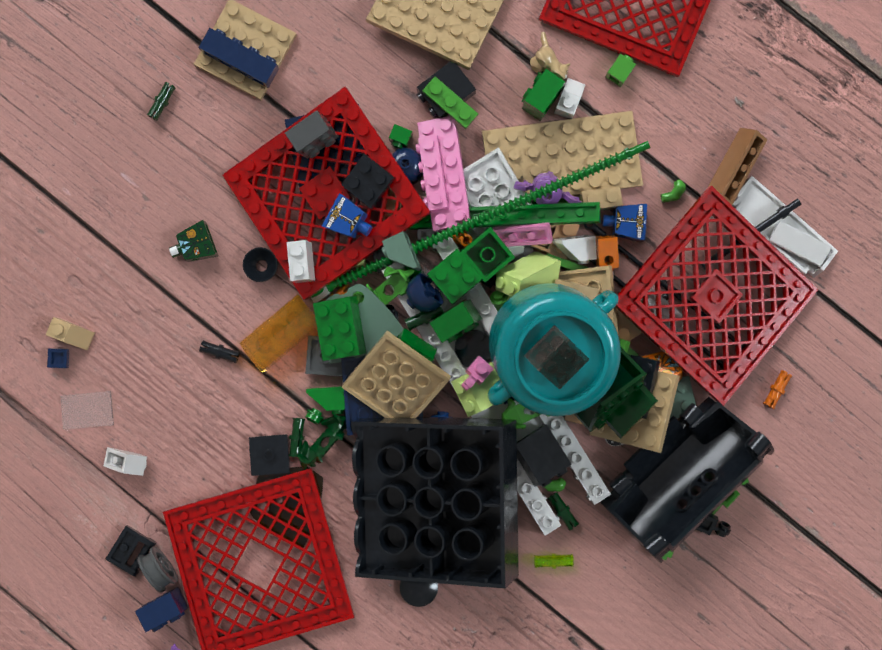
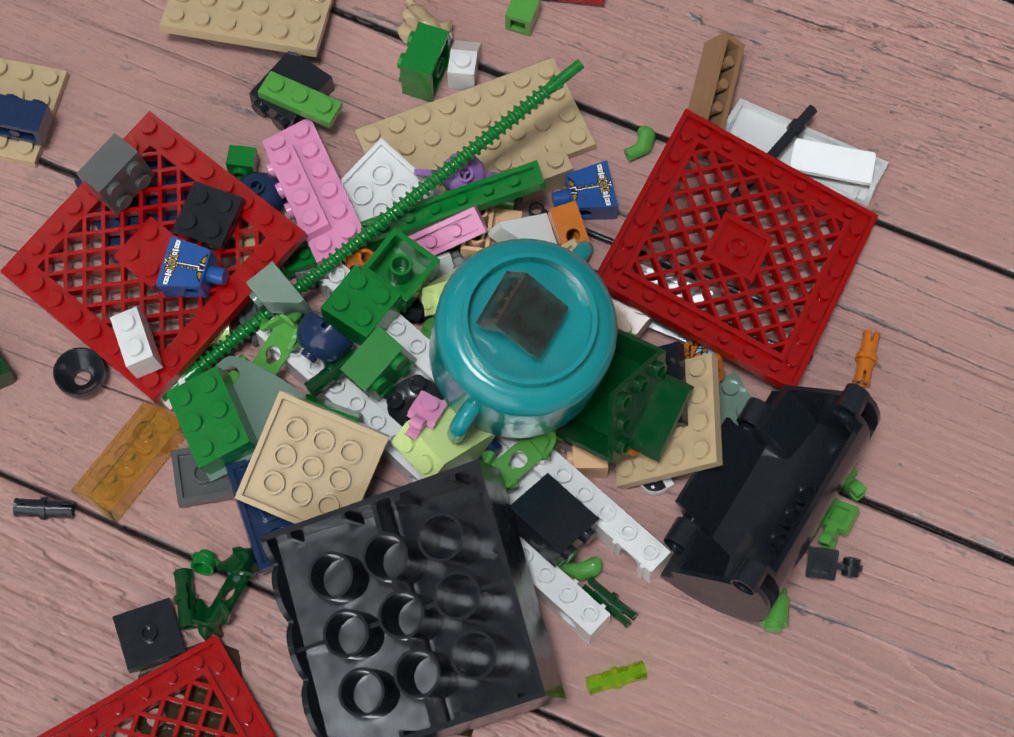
camera: 15 degrees left, 20 degrees down
(329, 398) = (219, 528): green slope -> none

